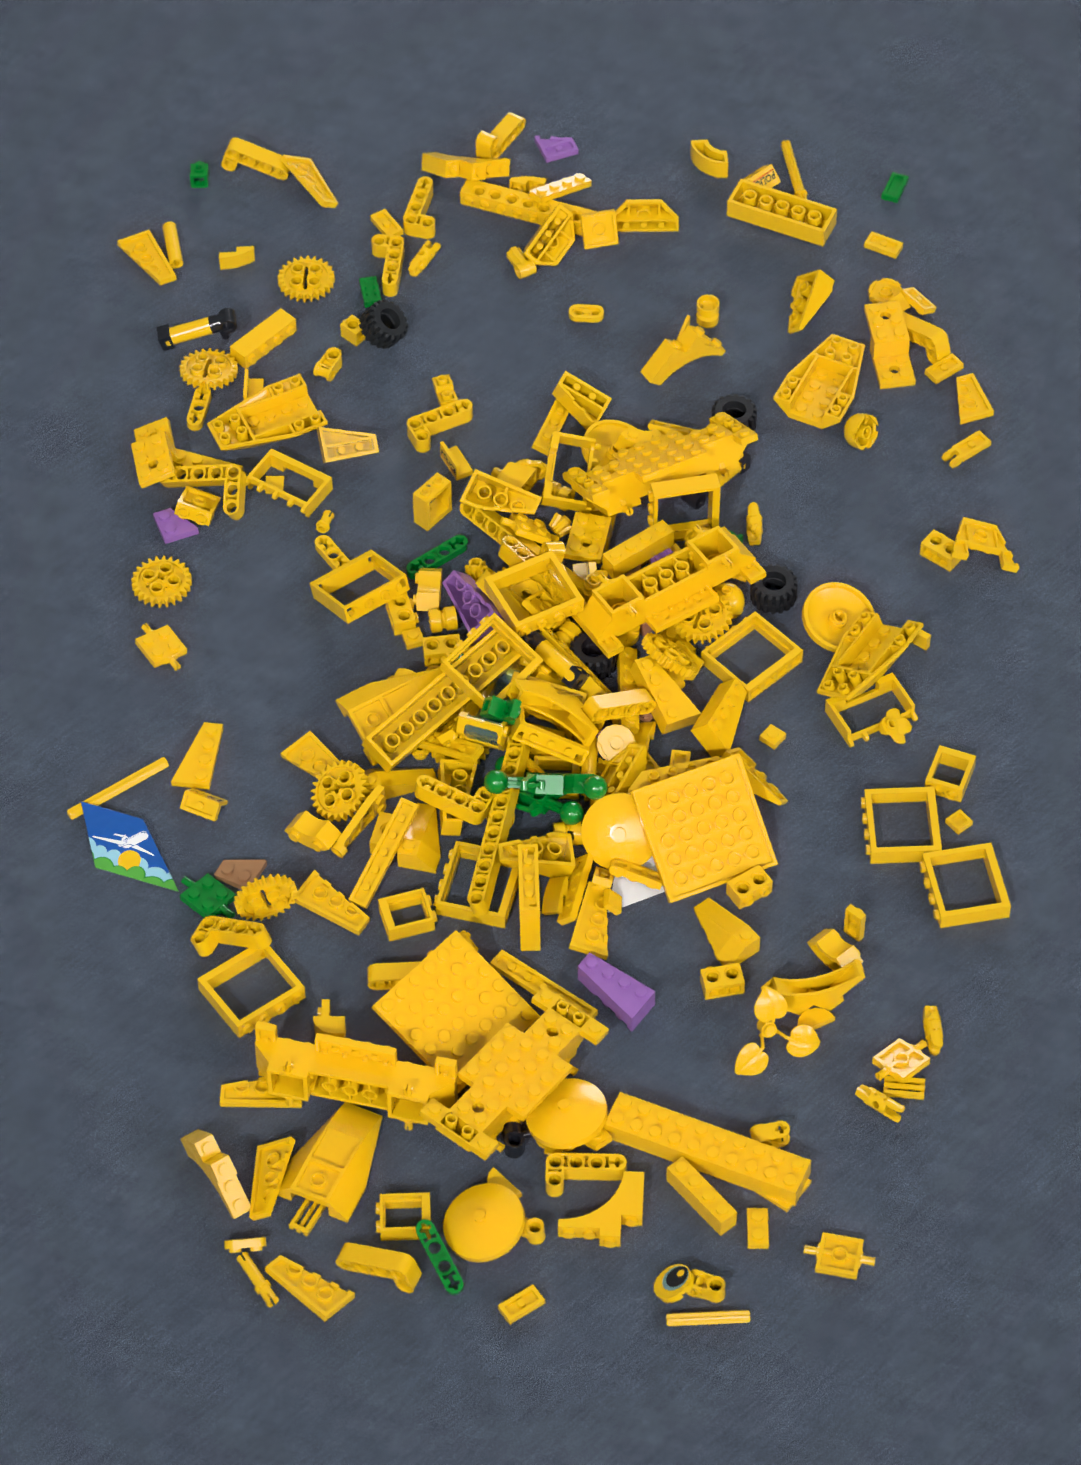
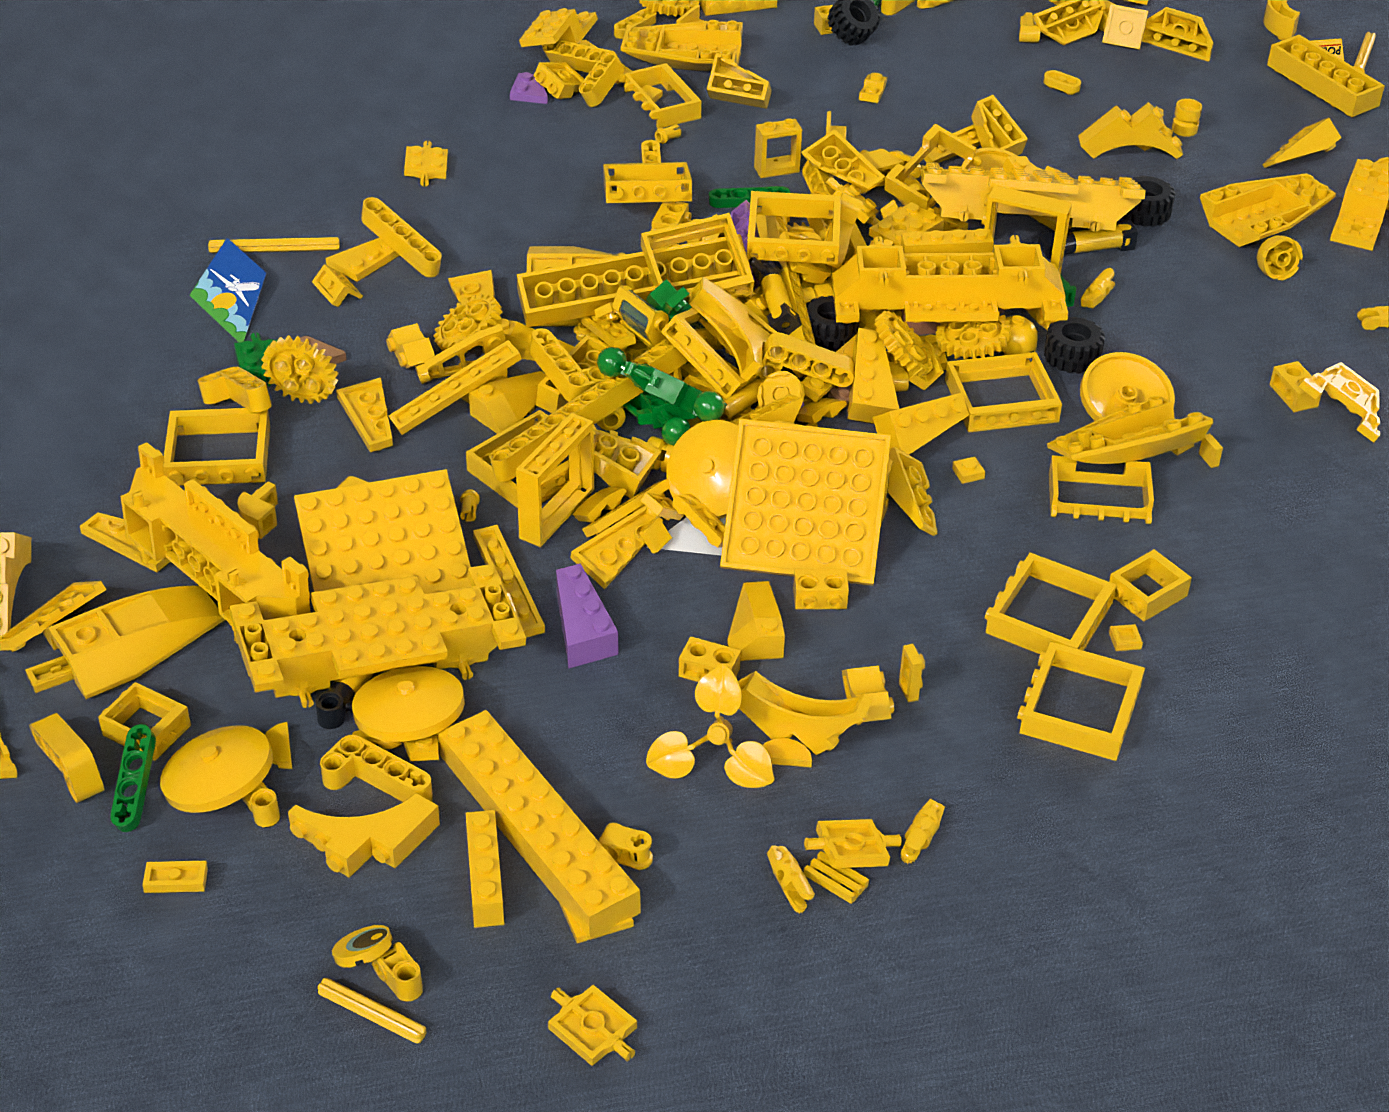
camera: 30 degrees right, 10 degrees down
(161, 581) = (474, 118): yellow gear -> none
(220, 735) = (401, 237): none -> yellow beam
(329, 364) = (781, 33): yellow piece -> none
(402, 901) = (434, 439): yellow window -> none
(429, 589) = (715, 204): yellow brick -> none
(436, 421) = (844, 103): yellow beam -> none
(757, 1228) = (523, 941): yellow plate -> none
(895, 726) = (1117, 514): yellow plate -> none

